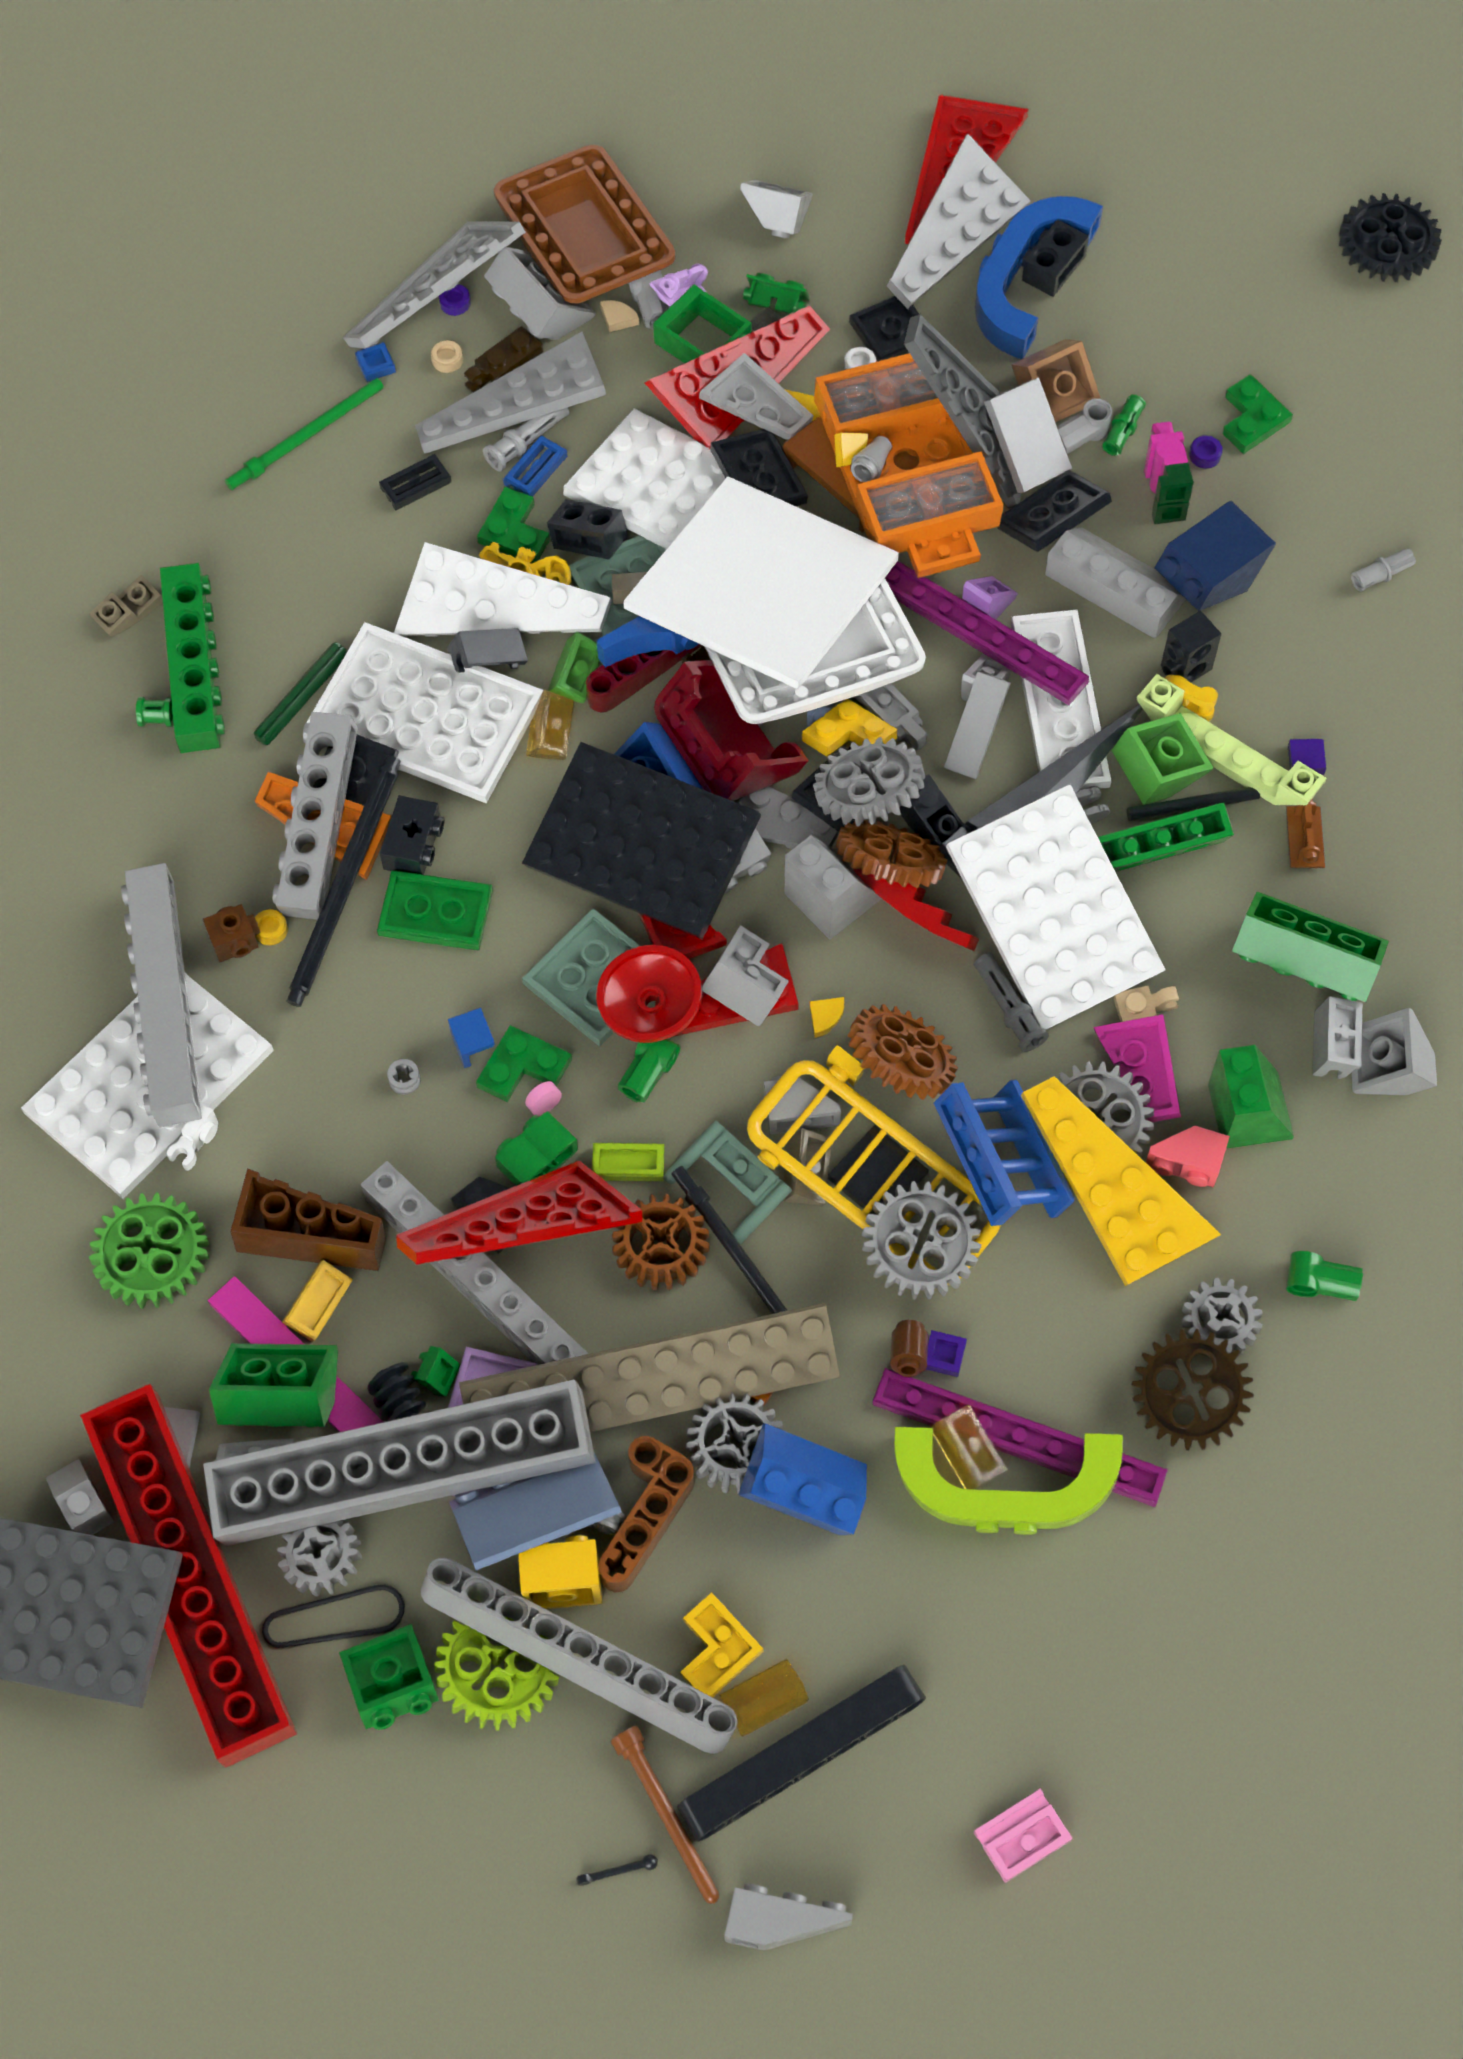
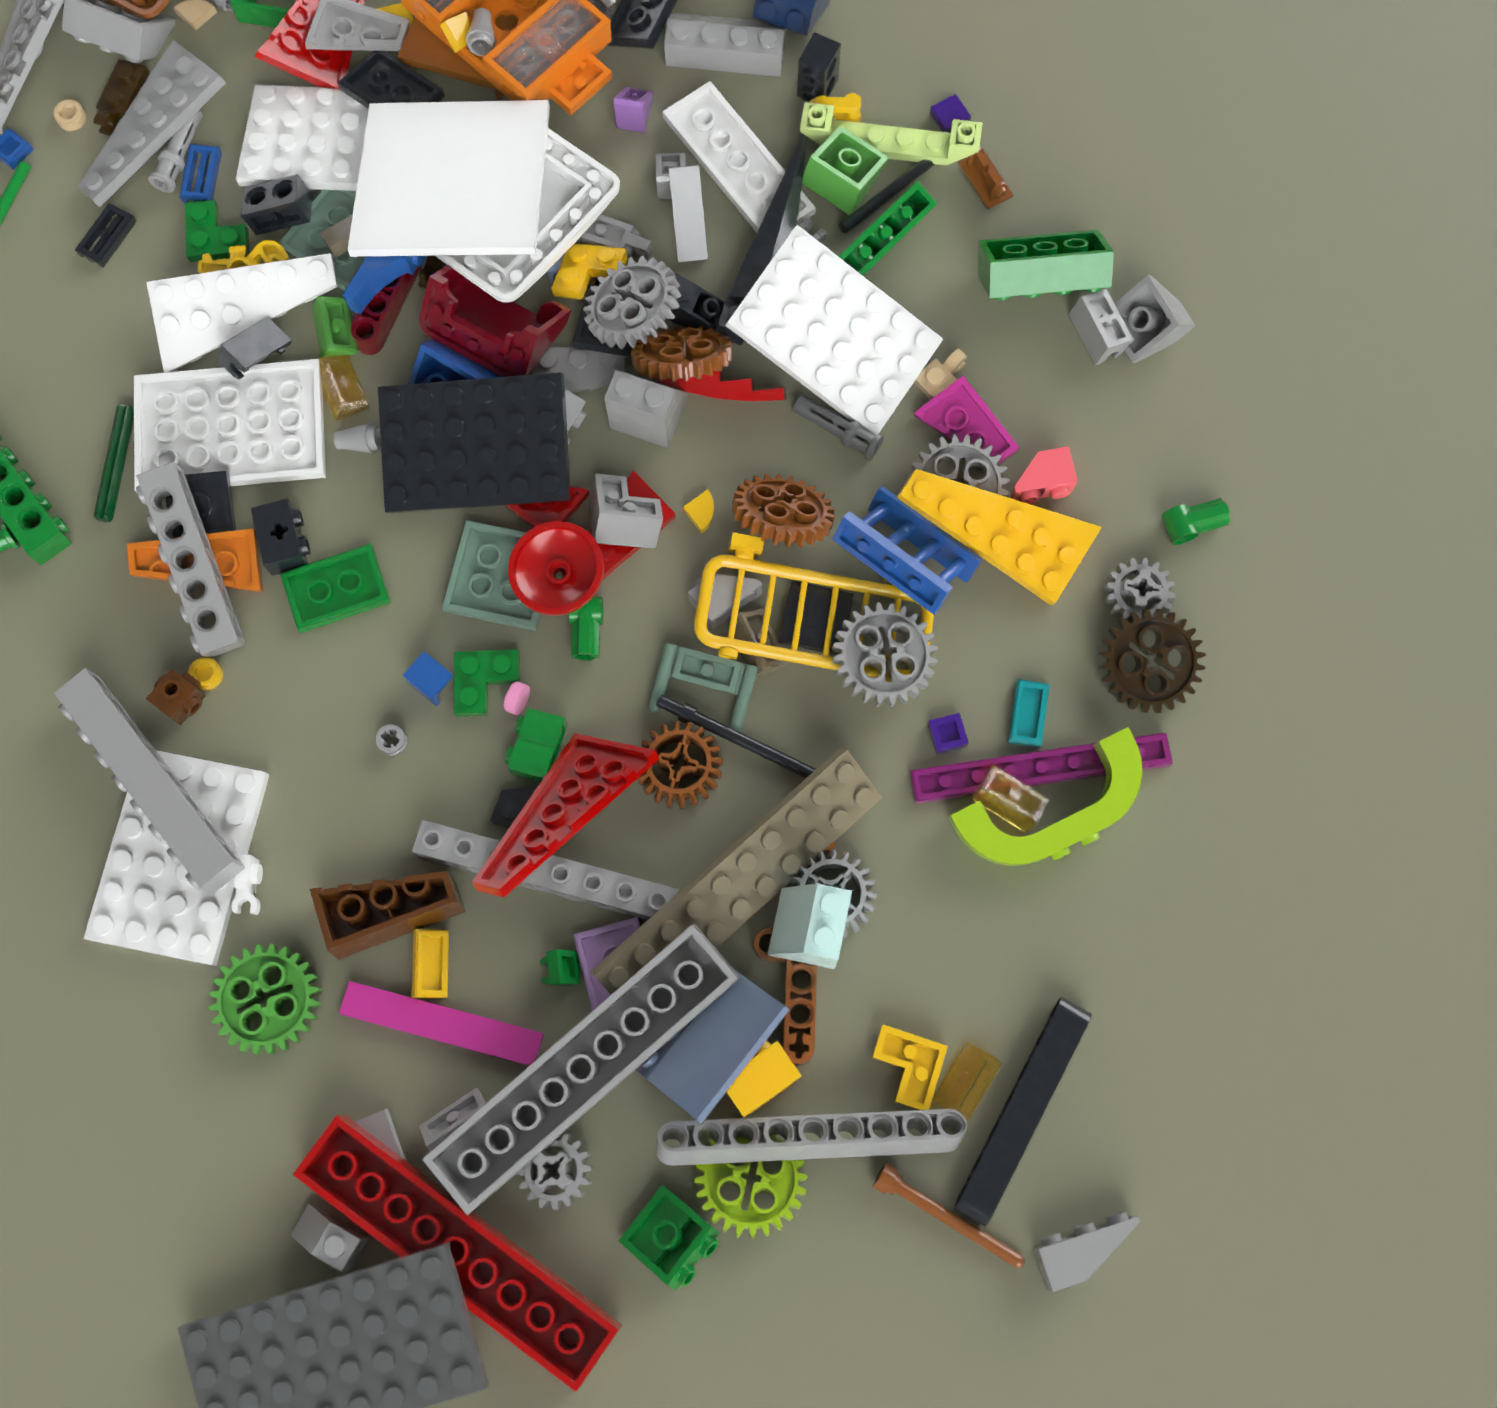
camera: 30 degrees left, 10 degrees up
(268, 1639) = (606, 1226): black piece -> none
(275, 1385) = (438, 1054): green slope -> none
(343, 881) = (246, 603): black piece -> none
(392, 1394) = (546, 1010): black piece -> none
(455, 301) = (48, 63): dark purple tile -> none
(537, 782) = (359, 438): none -> light grey cone
(629, 1161) = (614, 712): lime tile -> none
(649, 1862) = (956, 1262): black hinge -> none
(695, 1453) = (810, 924): none -> light aqua slope
(806, 1481) = (907, 895): blue slope -> none
(909, 1348) = (922, 745): reddish brown brick -> none
(986, 634) = (653, 136): magenta tile -> none
(1022, 1835) = (1222, 1078): bright pink plate -> none
(1038, 1378) = (1028, 713): none -> teal tile
(1248, 1098) = (1062, 410): green slope -> none

